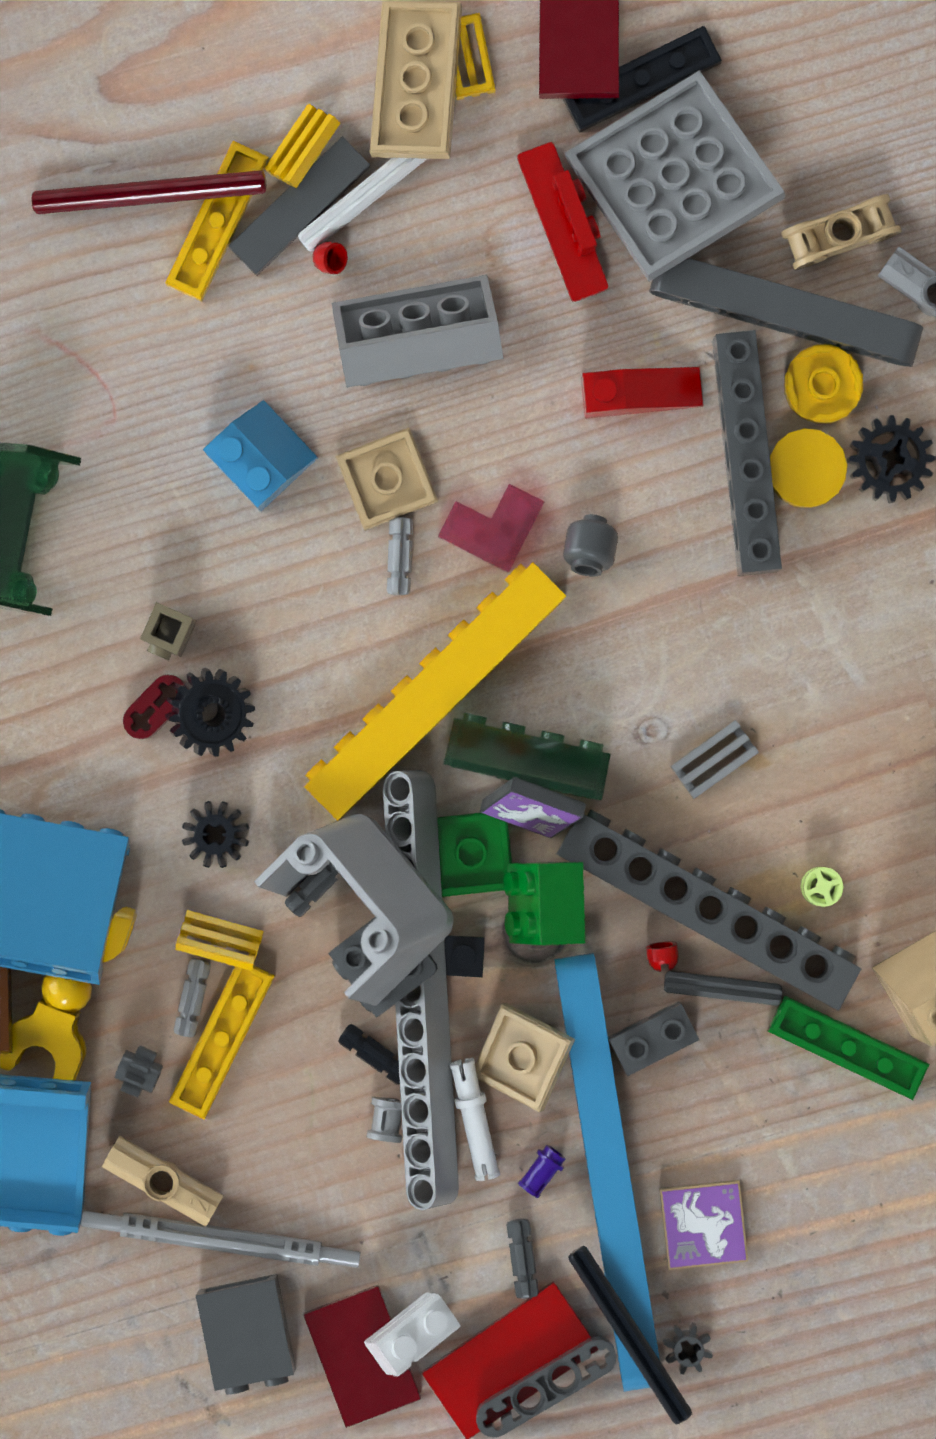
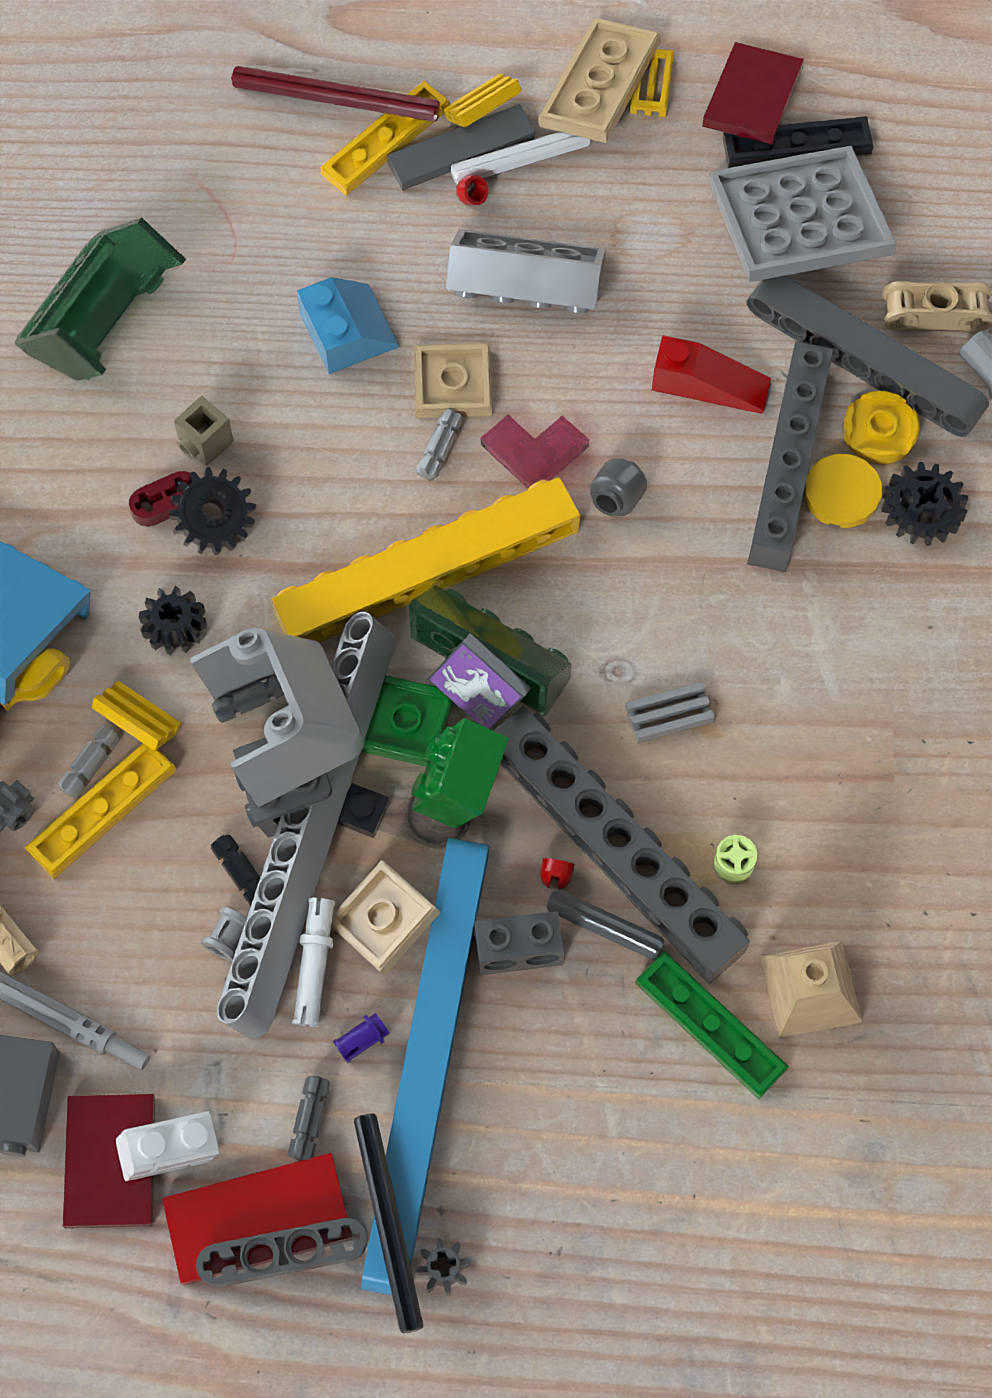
camera: 20 degrees right, 20 degrees down
(564, 220) = (690, 225): red bracket -> none
(703, 1224) = (504, 1149): tile -> none

